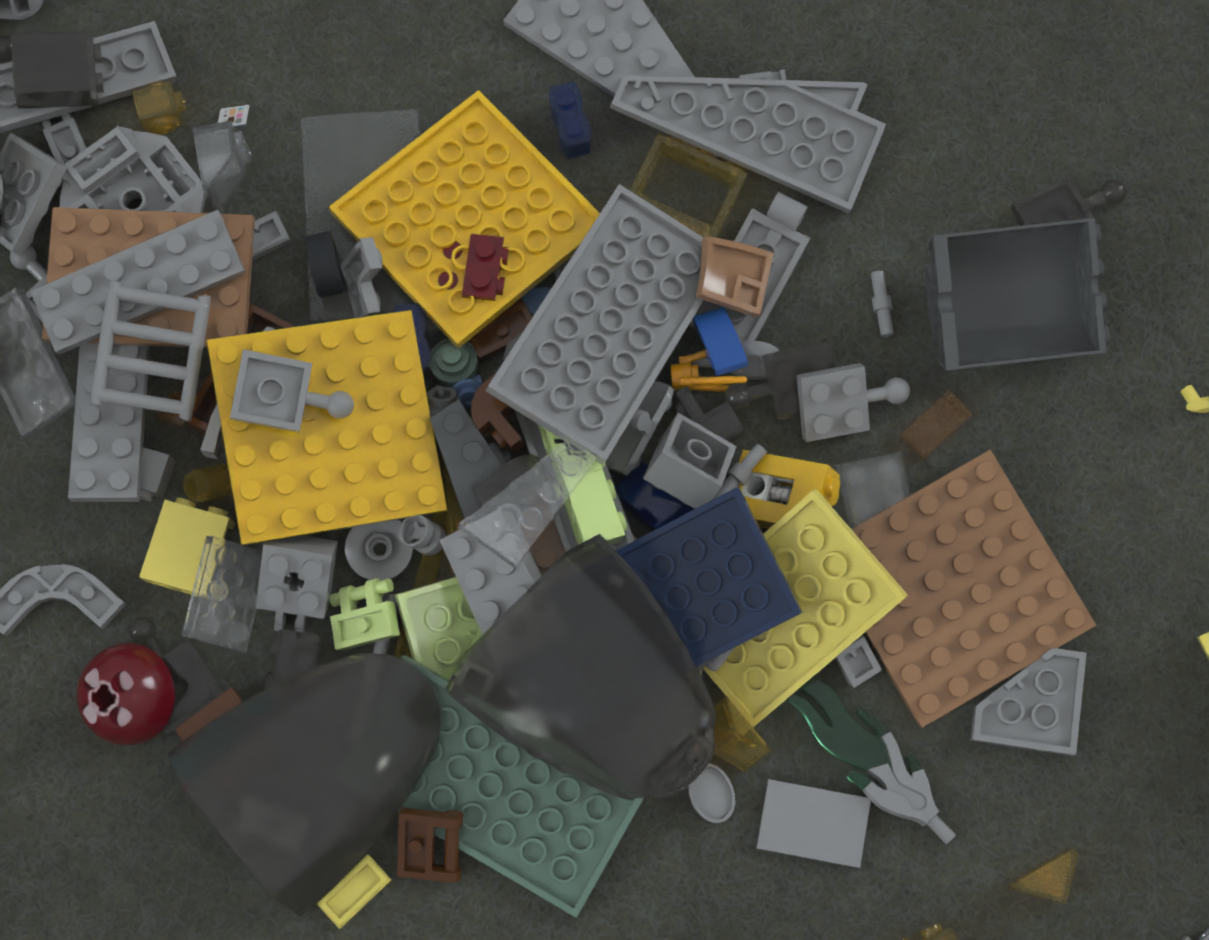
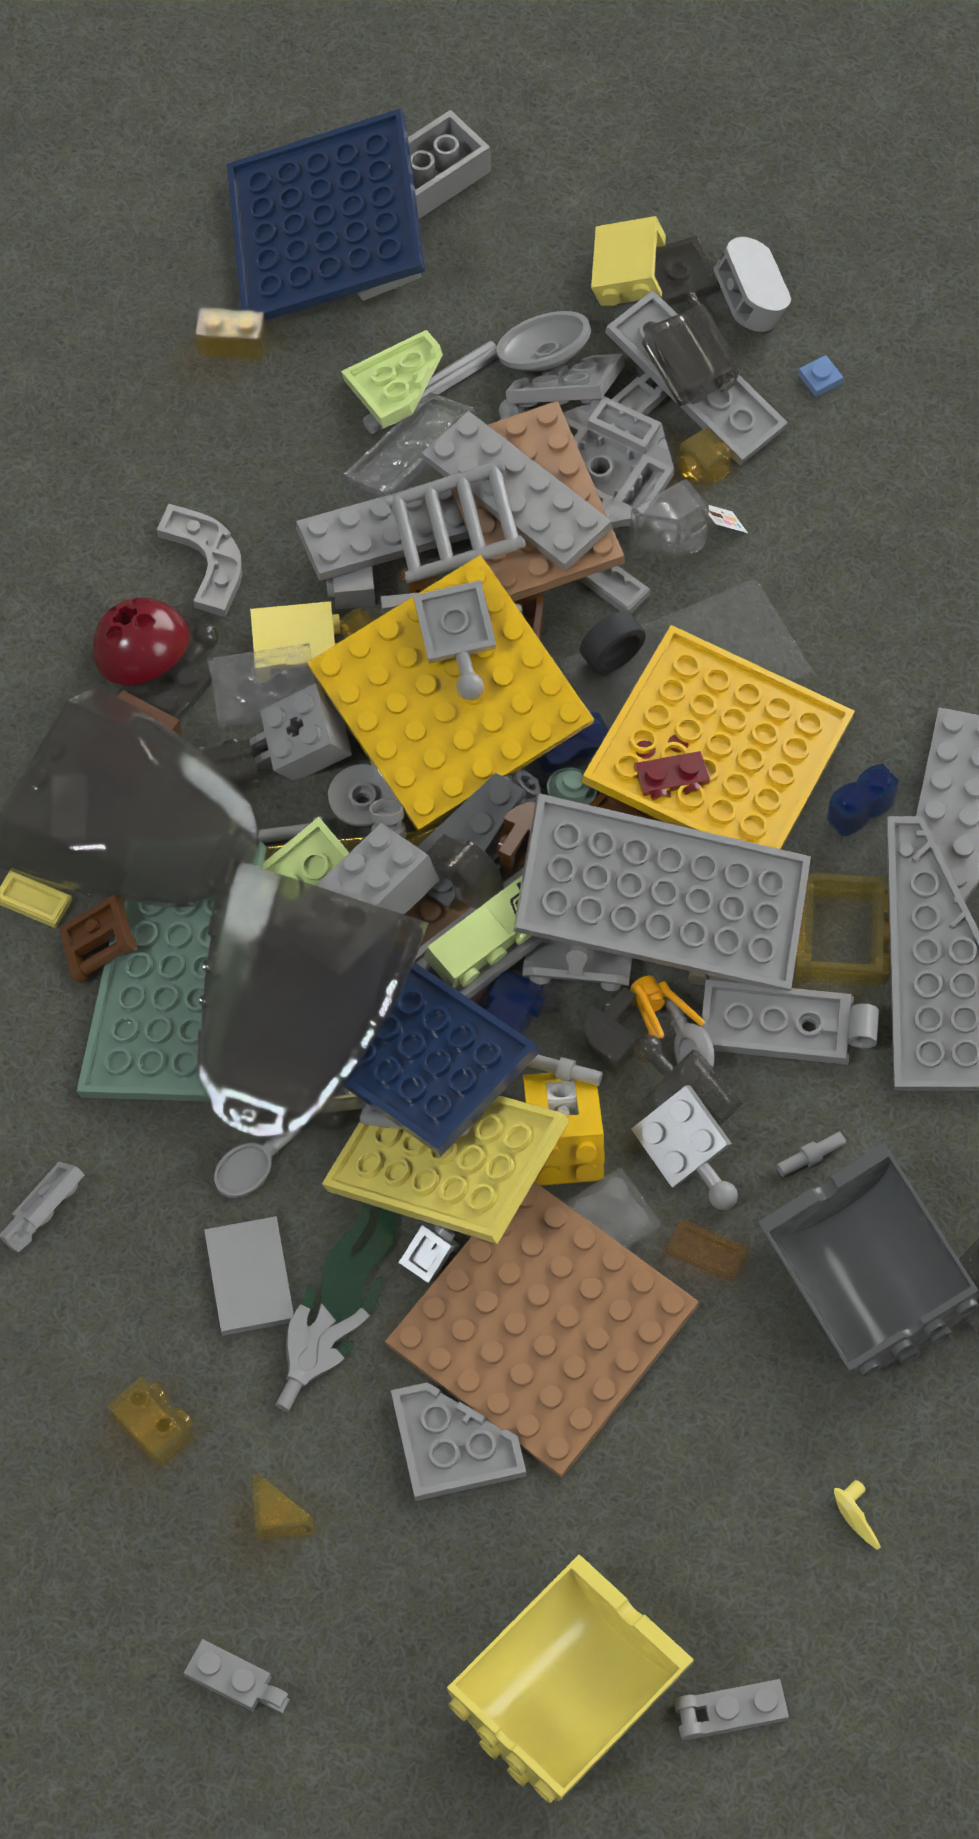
camera: 70 degrees right, 15 degrees down
(358, 272) = (619, 678): light grey plate -> none
(367, 624) = (285, 811): yellowish green plate -> none
(525, 508) = (433, 872): clear wing -> none
(690, 462) = (557, 1014): light grey brick -> none
(720, 341) = (692, 1005): blue slope -> none
(734, 275) = (767, 994): medium nougat plate -> none
(736, 738) = (303, 1168): clear yellow slope -> none

